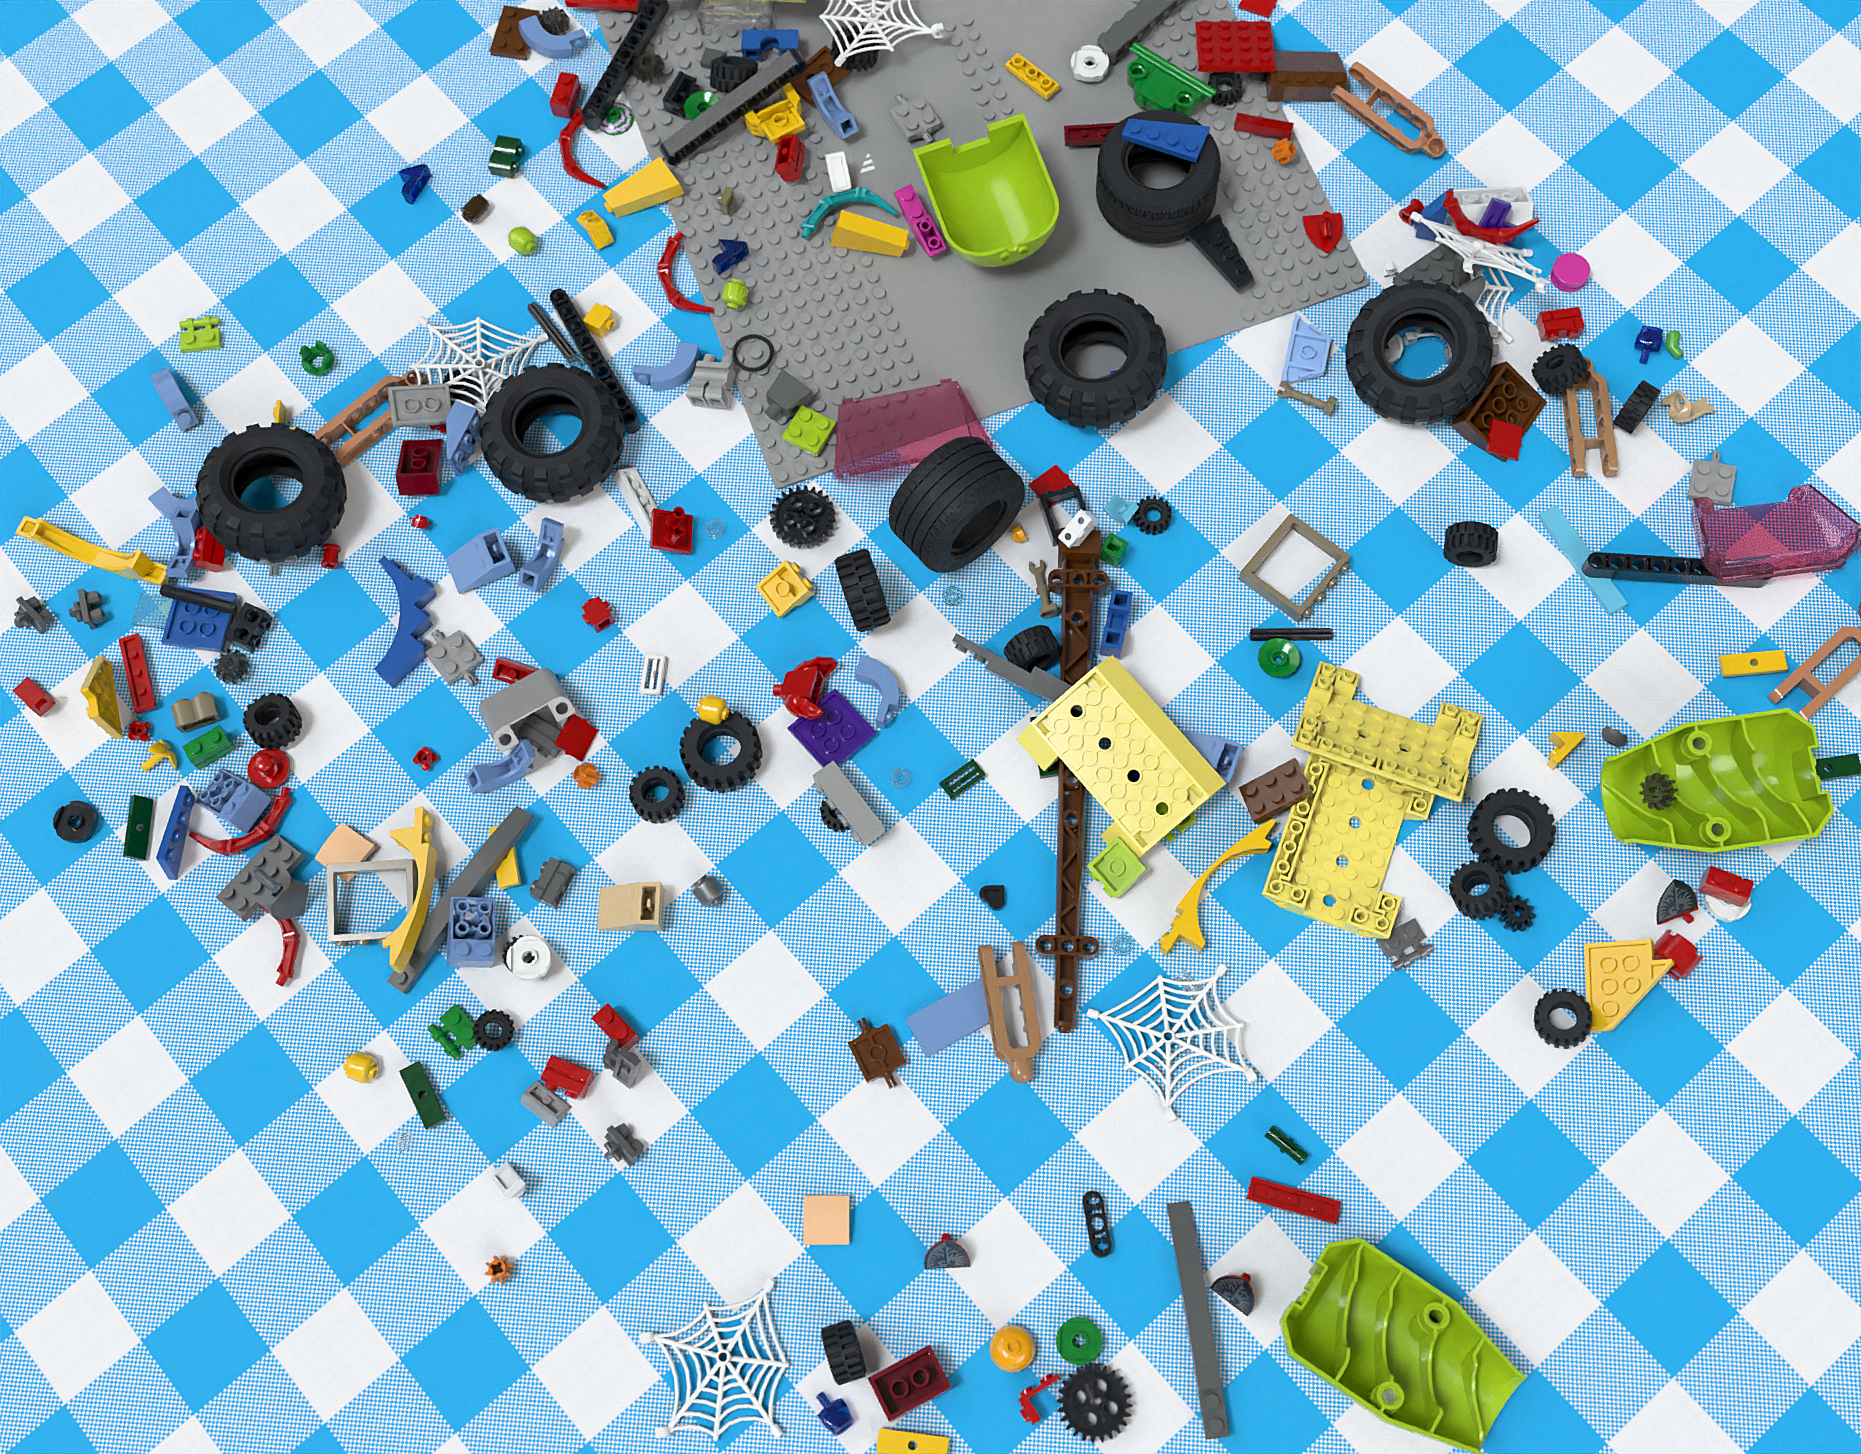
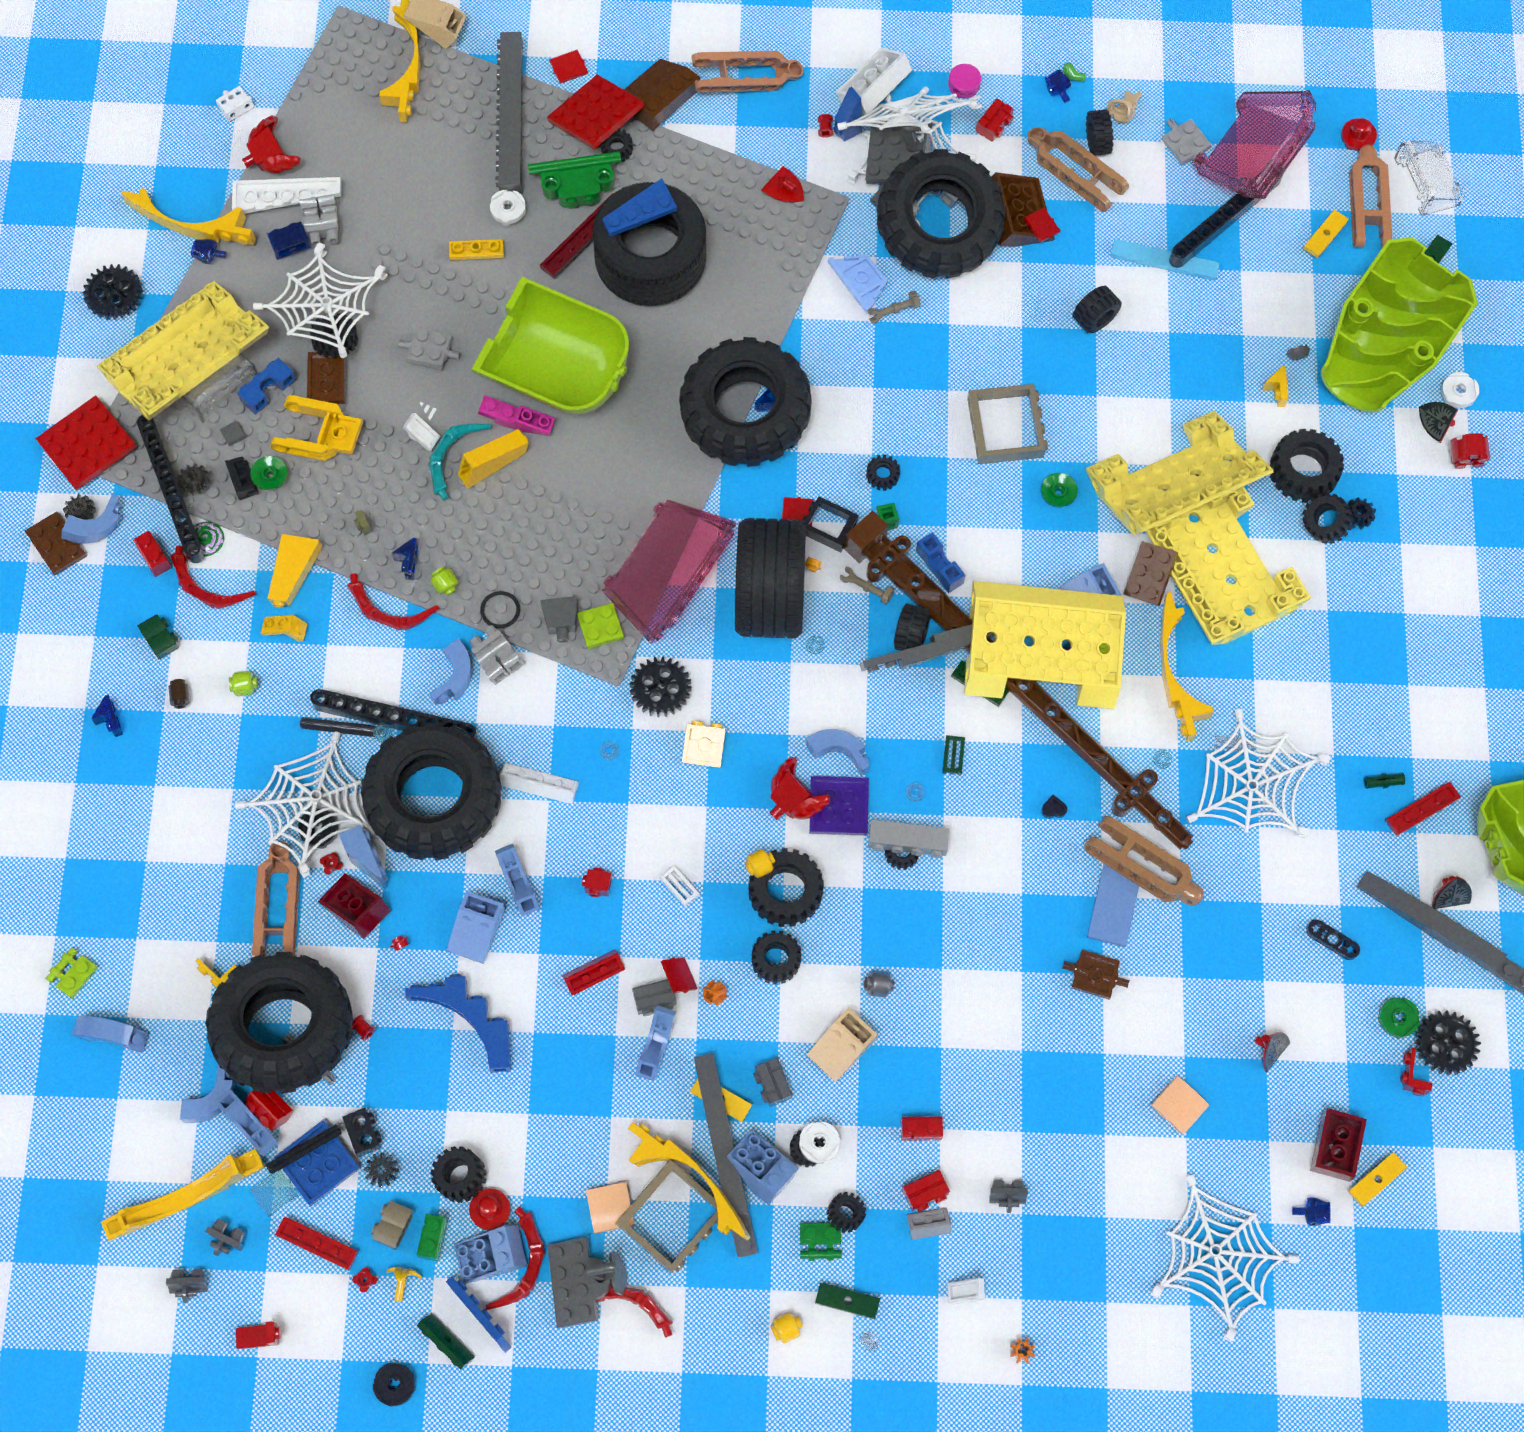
camera: 55 degrees left, 0 degrees up
(102, 697) = (316, 1279): yellow wing -> none
(310, 354) = (180, 897): green piece -> none
(419, 404) = (312, 862): light grey tile -> none
(421, 754) = (586, 1088): red plate -> none
(454, 657) = (531, 1008): light grey plate -> none
(520, 701) = (623, 988): light grey windscreen -> none
(599, 320) = (365, 685): yellow brick -> none
(622, 1063) = (958, 1144): flat silver plate -> none
(671, 530) = (585, 779): red plate -> none
(731, 72) = (270, 429): black tyre -> none
(733, 106) = (298, 452): beam -> none
(790, 158) = (375, 452): red brick -> none
(833, 113) = (364, 394): medium blue arch -> none
(843, 1352) = (1284, 1167): black tyre -> none
(862, 590) = (765, 693): black tyre -> none
(1012, 1348) = (1368, 1063): light orange cylinder -> none
(1078, 528) = (864, 520): white piece -> none
(1116, 868) = (1111, 714): lime plate -> none
(1119, 509) = (861, 487): medium azure bracket -> none
(1218, 248) = (735, 259): black wing -> none
(1263, 126) = (670, 150): red slope -> none
(1266, 634) = (1048, 468): black axle -> none
(1283, 151) = (704, 155): orange gear -> none
(1400, 939) = (1315, 586): flat silver plate -> none
(1469, 228) = (900, 96): red animal -> none
(1495, 215) = (892, 88): dark purple plate -> none
(1559, 368) = (1036, 156): black tyre -> none
(1567, 1000) = (1456, 535): black tyre -> none
(1619, 978) = (1456, 495): yellow wing -> none
(1658, 791) = (1376, 361): clear smoke gear -> none
(1725, 886) = (1455, 382): red brick -> none

